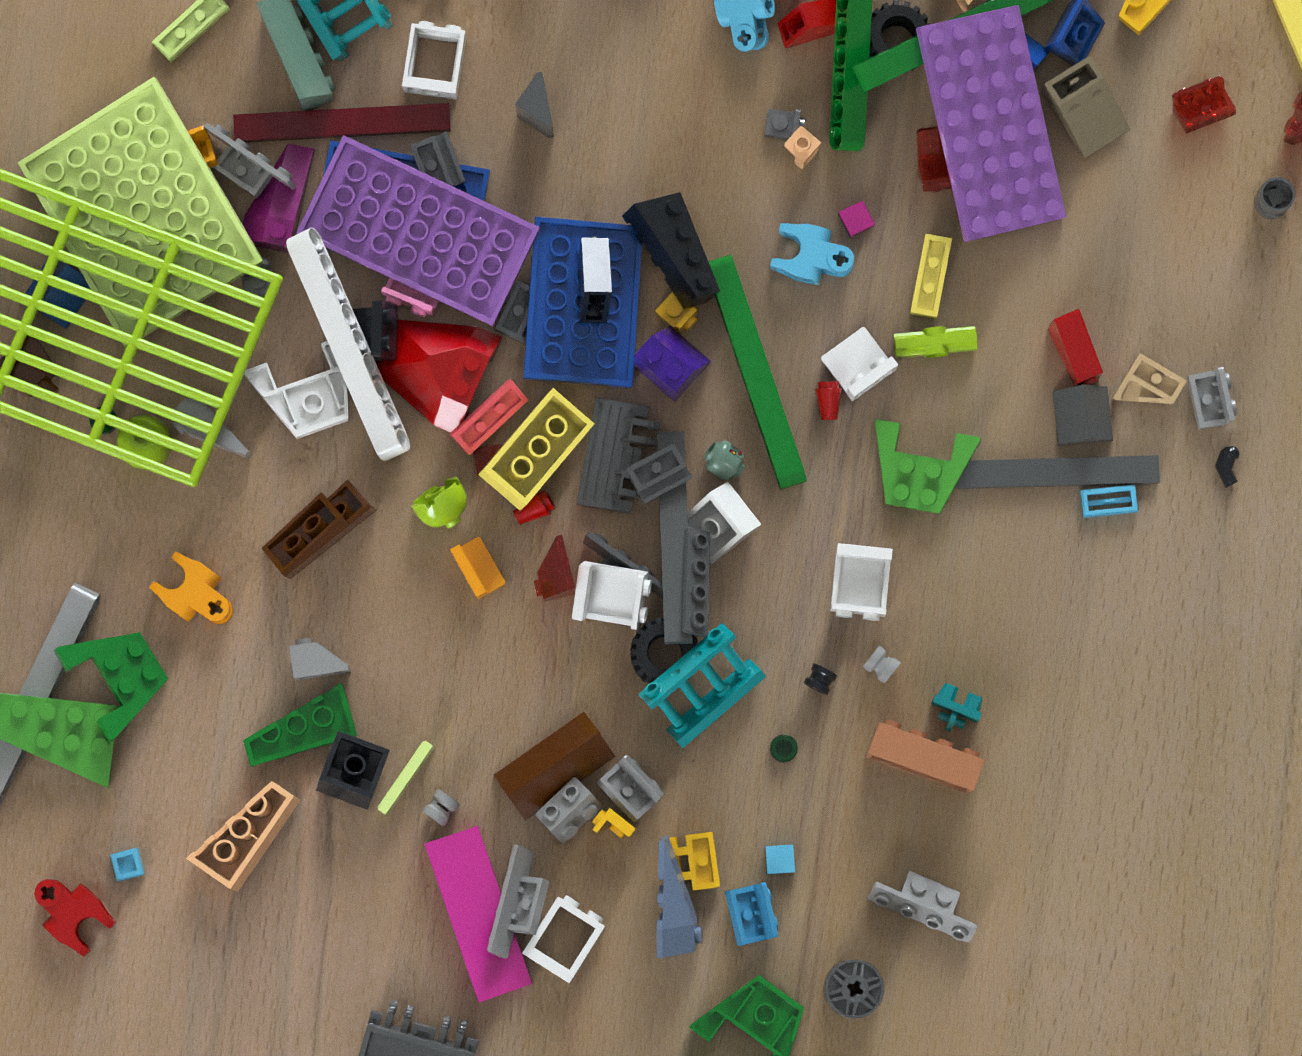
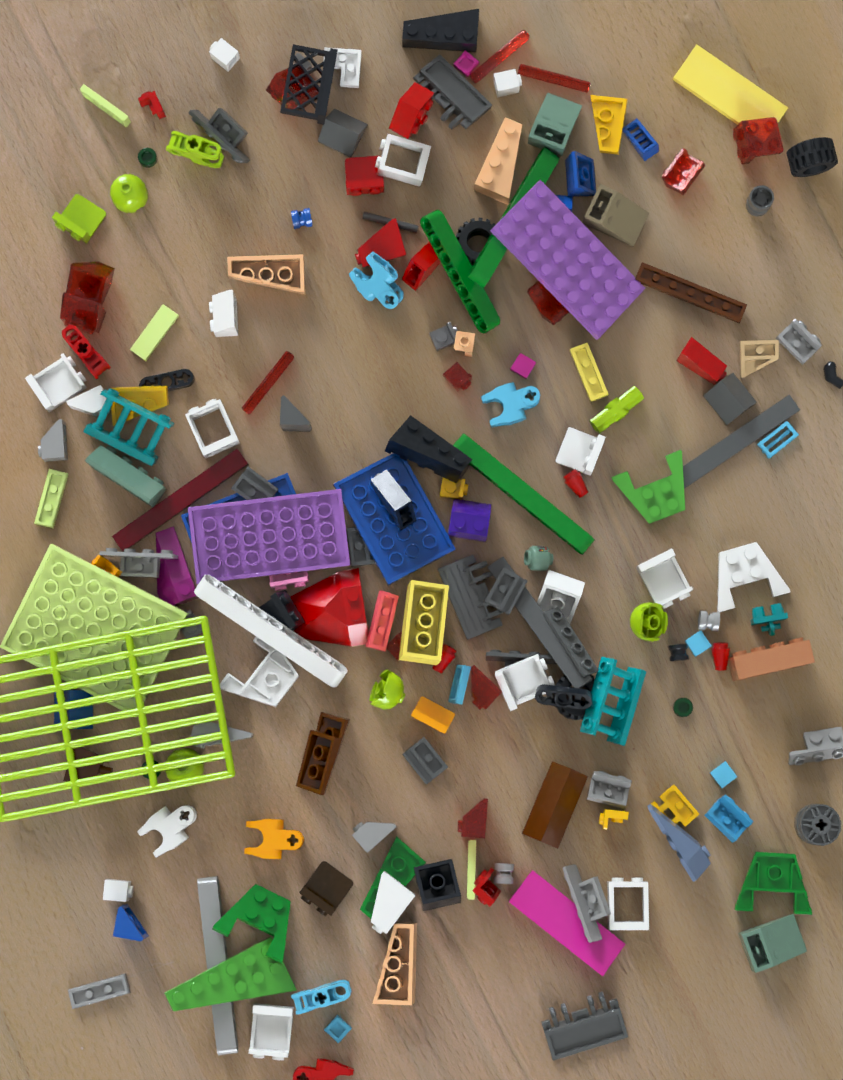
camera: 30 degrees left, 0 degrees up
(47, 816) = (271, 1031): none -> white panel
(83, 501) = (170, 826): none -> white piece
(118, 807) = (311, 998): none -> medium azure piece
(219, 691) = (326, 888): none -> dark brown bracket
(282, 753) = (389, 903): none -> white slope
(405, 809) = (485, 889): none -> red bracket
(433, 615) = (425, 760): none -> dark grey plate
(445, 721) = (474, 821): none -> clear red slope
(532, 550) = (459, 684): none -> medium azure tile
(536, 47) = (268, 382): none -> clear red axle
(568, 810) = (581, 826): light grey bracket -> none
(633, 642) = (550, 689): none -> black beam
(769, 183) = (458, 377): none -> clear red bracket
(807, 618) = (648, 621): none -> lime cylinder
(851, 683) = (698, 643): none -> medium azure tile
(869, 714) = (720, 655): none -> red cone
(968, 628) = (745, 566): none -> white wing
(1118, 257) = (691, 292): none -> reddish brown plate
(1178, 50) = (645, 150): none -> blue slope

